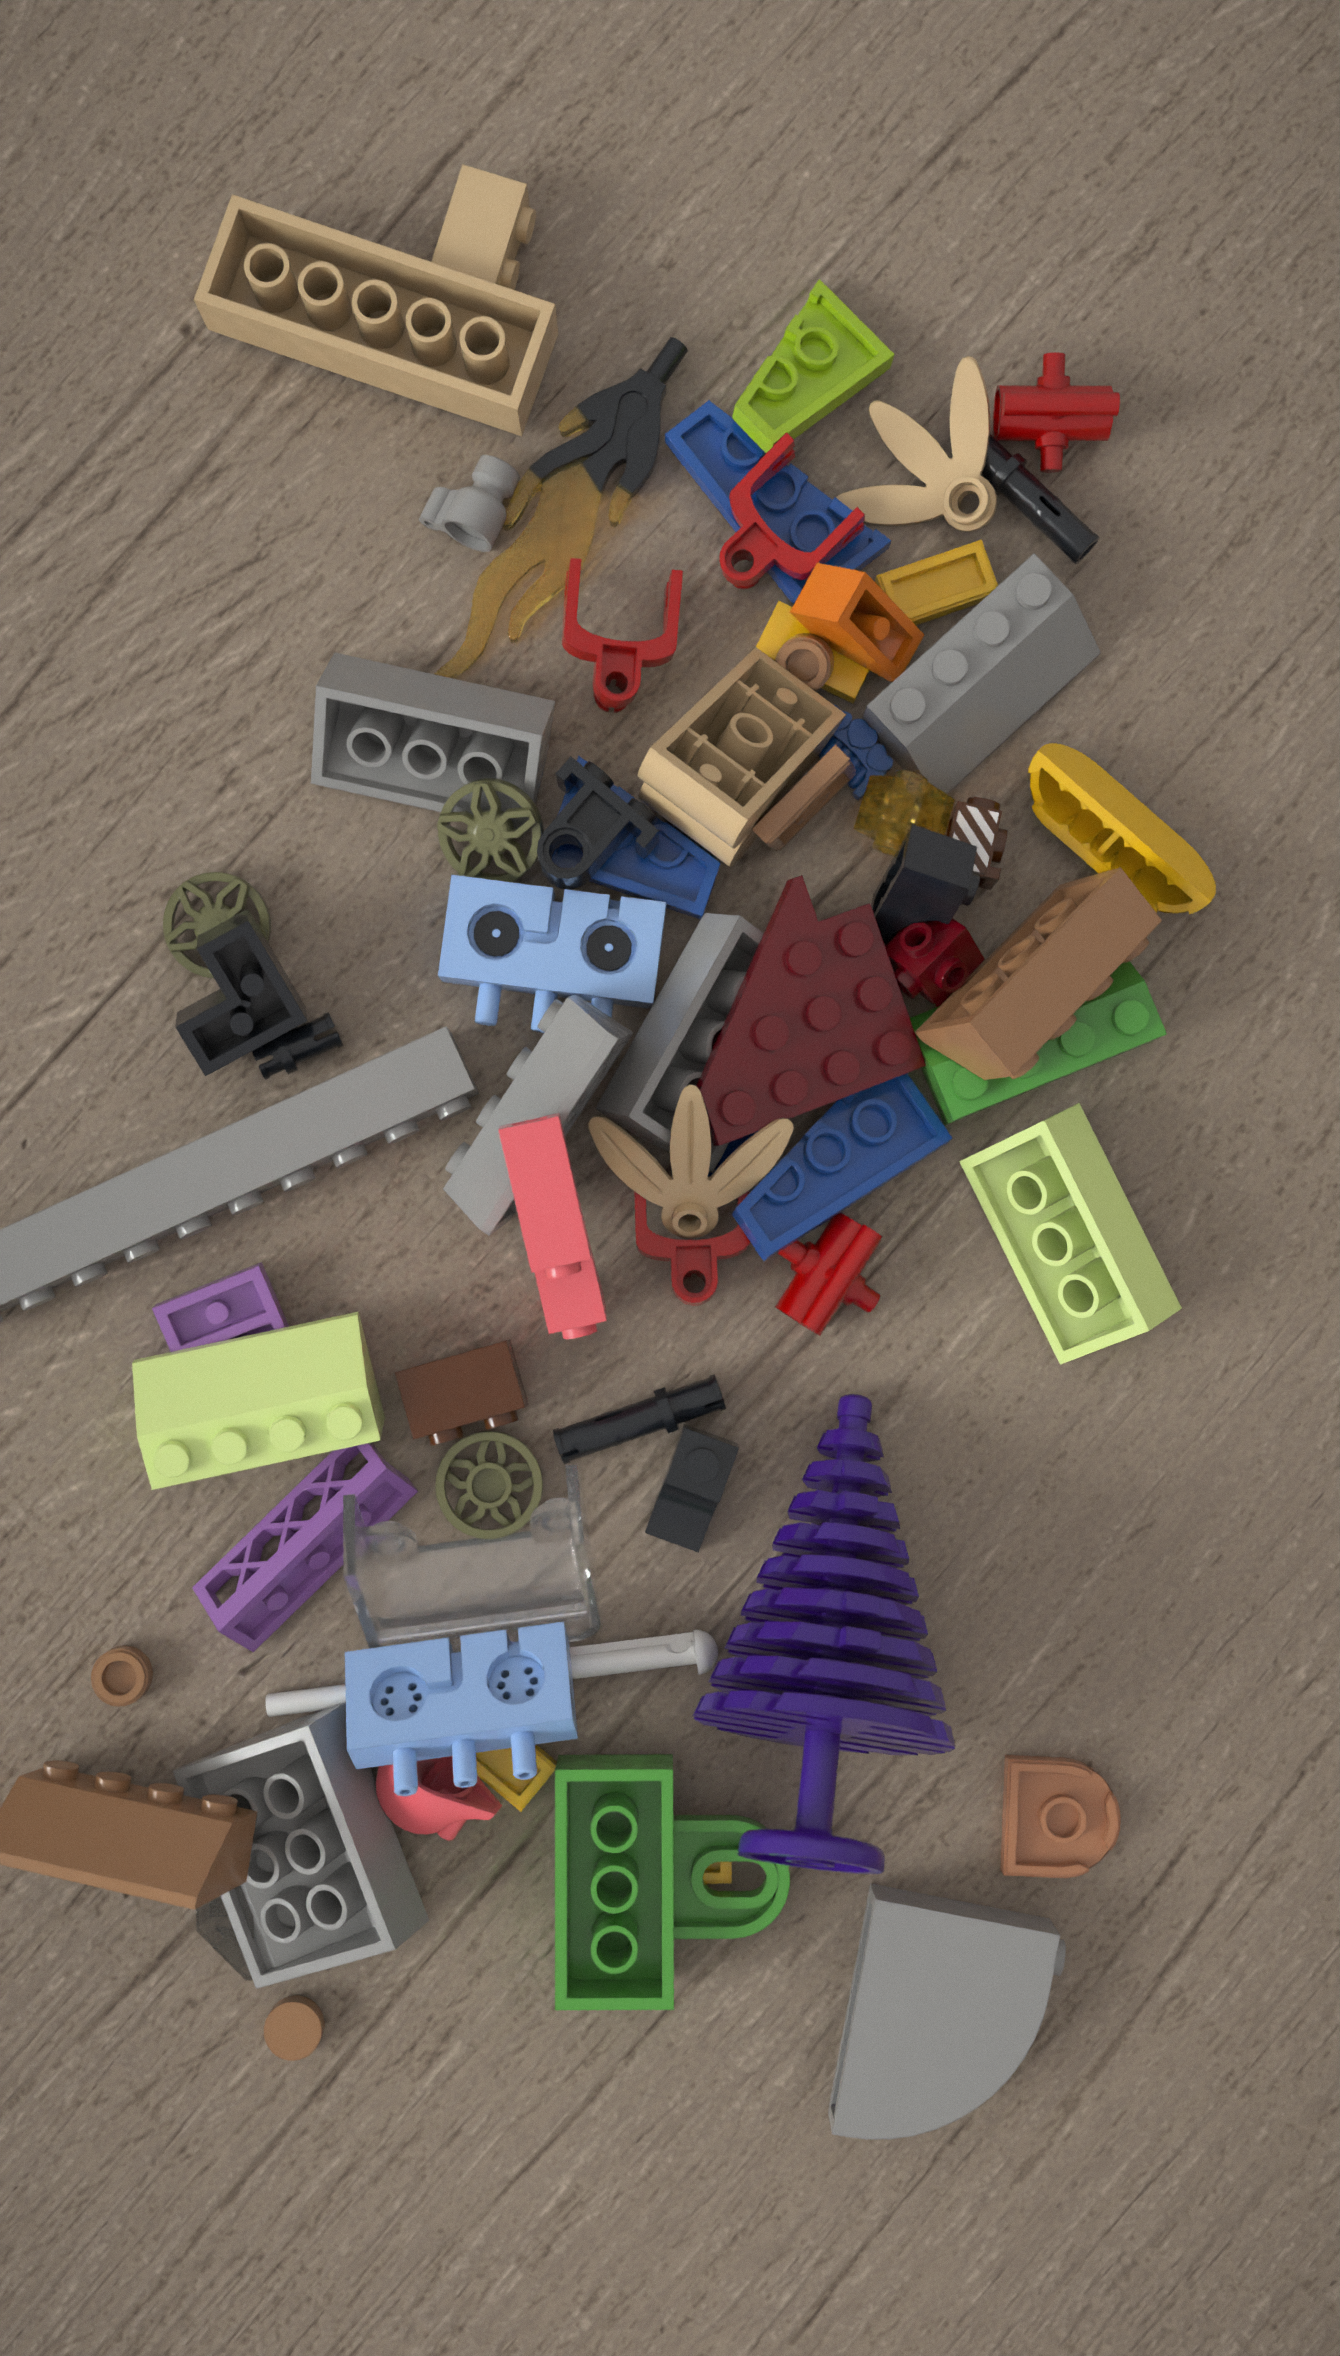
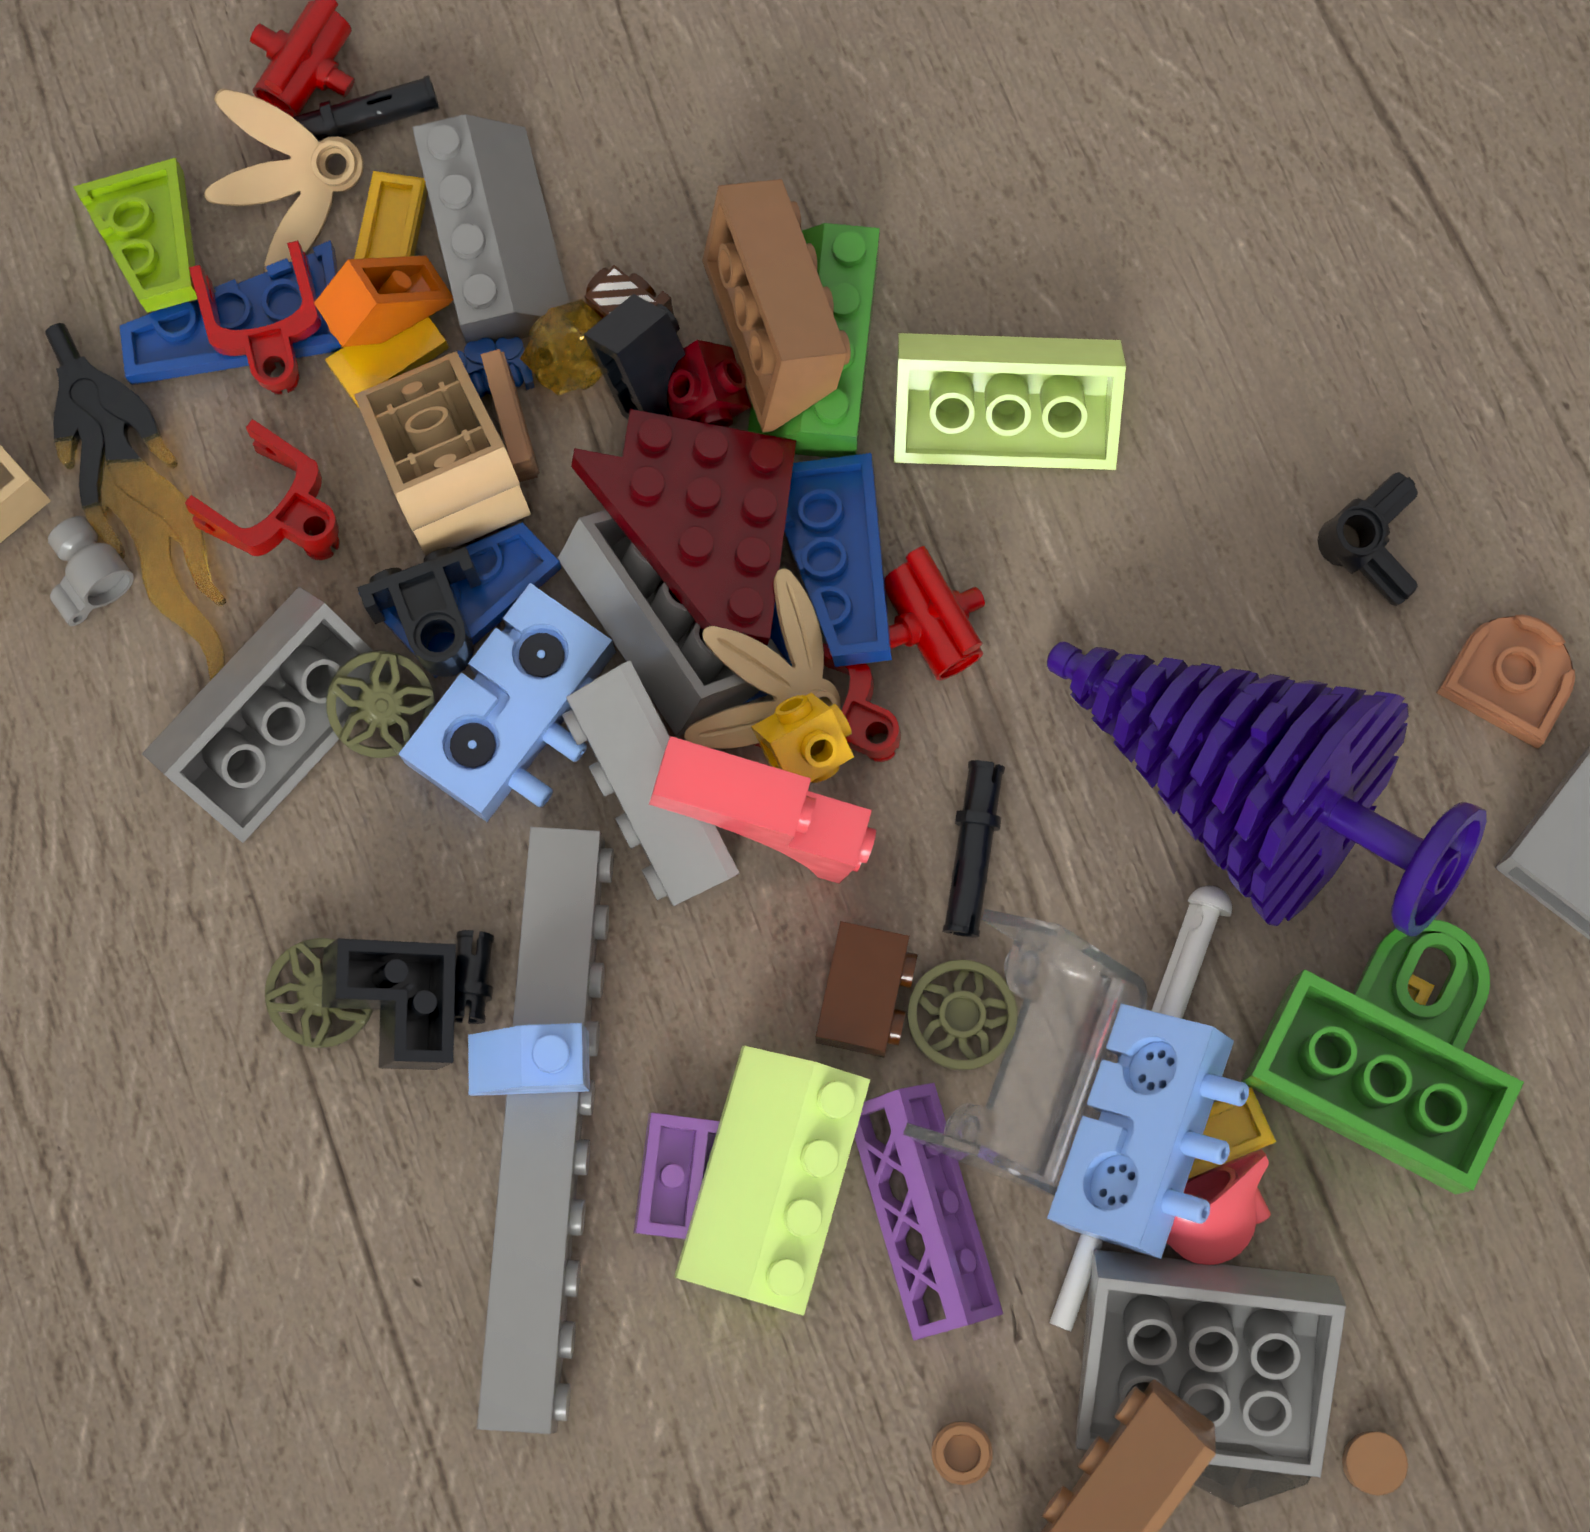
camera: 55 degrees left, 10 degrees down
(238, 1142) = (529, 1060): none -> light blue slope
(643, 1226) = (805, 737): none -> yellow brick
(692, 1487) = (1058, 832): black arch -> none
(807, 659) = (389, 358): medium nougat tile -> none
(1116, 830) = (680, 190): yellow brick -> none
(1130, 1622) = (1371, 522): none -> black axle

